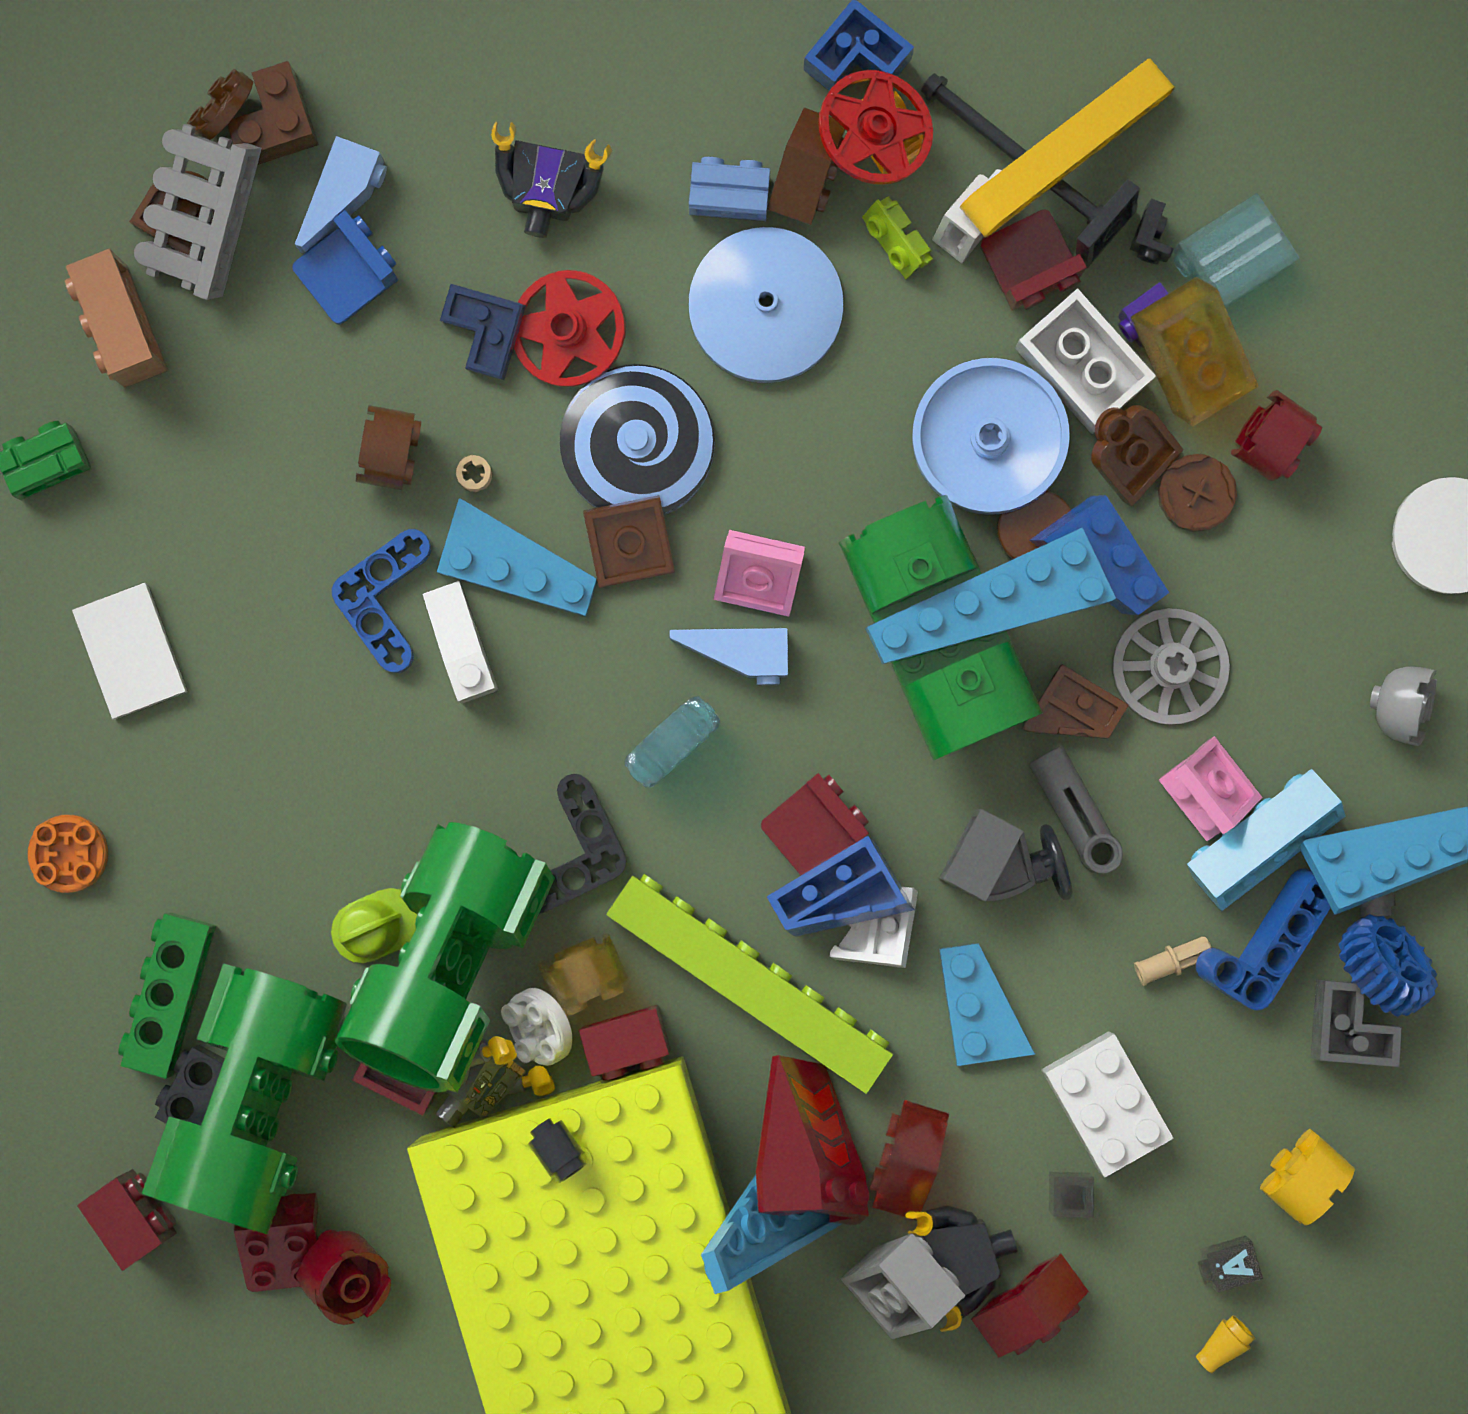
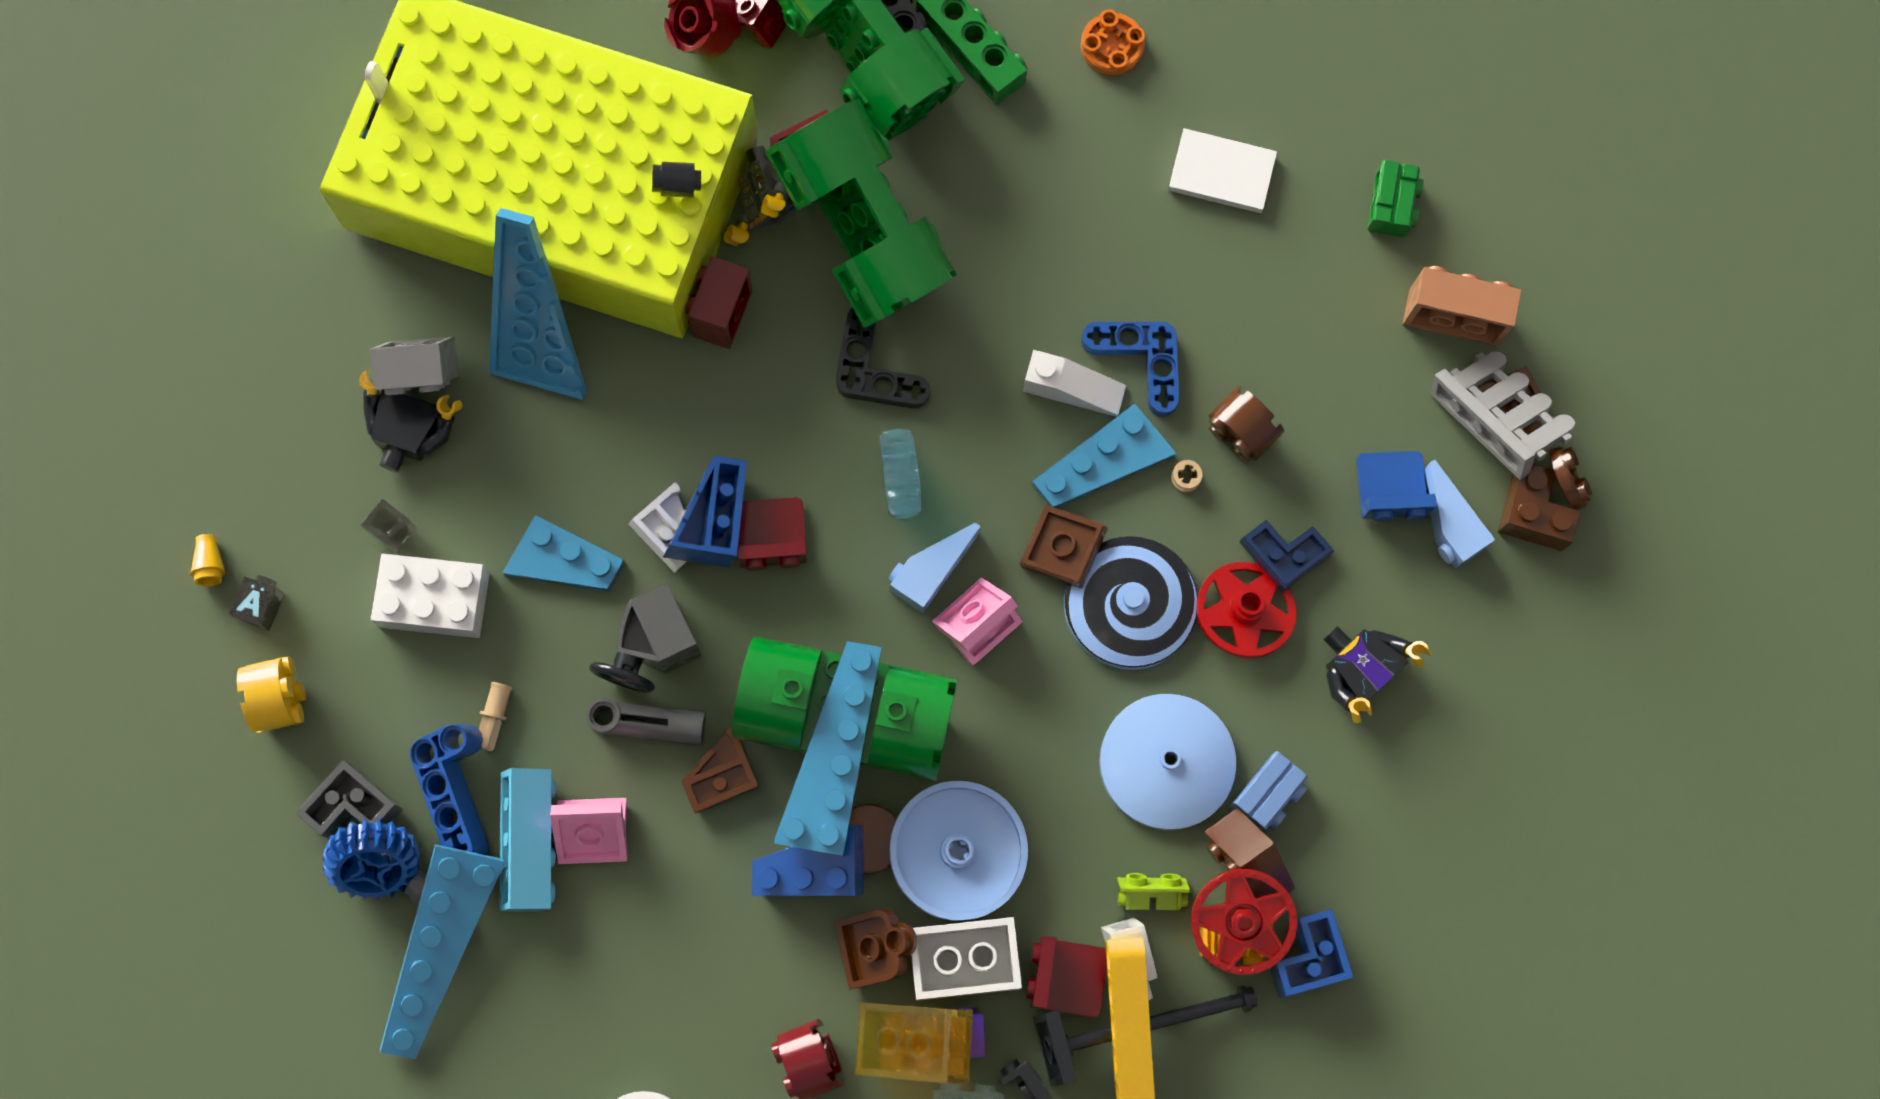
camera: 115 degrees right, 10 degrees down
(373, 926) = (922, 195): lime piece -> none
(538, 1027) = (772, 254): white tile -> none
(584, 973) = (785, 307): clear yellow brick -> none
(749, 983) = (697, 415): lime brick -> none
(807, 1148) = (557, 364): dark red wedge -> none
(910, 1159) = (494, 431): clear red brick -> none
(1031, 1308) = (333, 446): dark red brick -> none
(1171, 666) = (699, 867): light grey wheel -> none
(1197, 492) = (810, 978): reddish brown tile -> none
(1405, 703) = (546, 1014): light grey cylinder -> none

